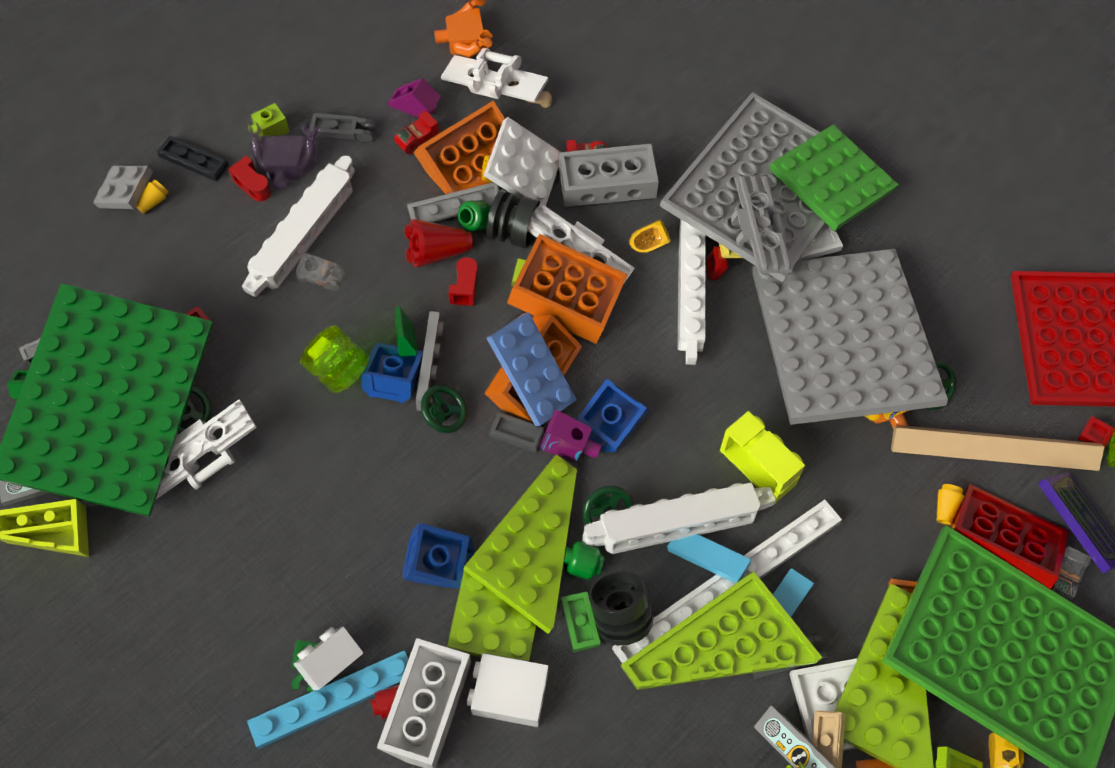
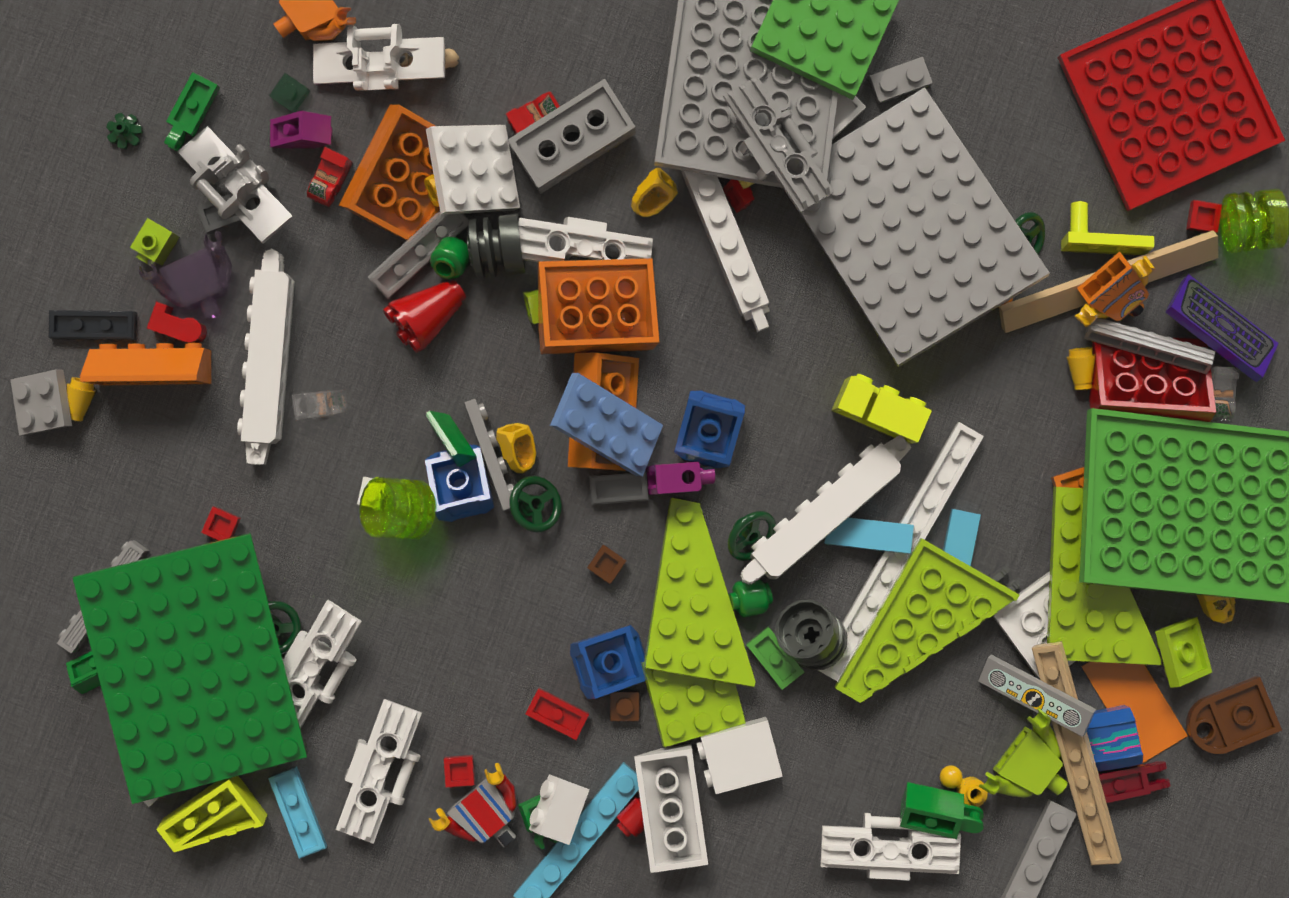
camera: 25 degrees left, 25 degrees up
(113, 565) = (297, 812): none -> medium azure tile
(192, 552) = (371, 767): none -> white piece
(212, 195) = (147, 366): none -> orange slope
(264, 591) = (459, 771): none -> red plate
(264, 631) = (482, 811): none -> torso
(293, 54) = (124, 130): none -> dark green plant
(345, 59) = (190, 110): none -> green plate
(353, 107) = (240, 178): none -> light grey piece
(371, 582) = (557, 713): none -> red plate
(419, 72) = (289, 93): none -> clear green plate
(431, 604) = (624, 706): none -> reddish brown plate
(452, 364) = (517, 446): none -> yellow rock
(466, 286) = (485, 351): red leg -> none
(476, 482) = (606, 564): none -> reddish brown plate
(876, 240) = (900, 80): none -> light grey plate
(1001, 416) = (1081, 241): none -> neon yellow piece
(1002, 449) = (1115, 290): none -> orange torso
(1016, 508) = (1150, 345): none -> light grey piece

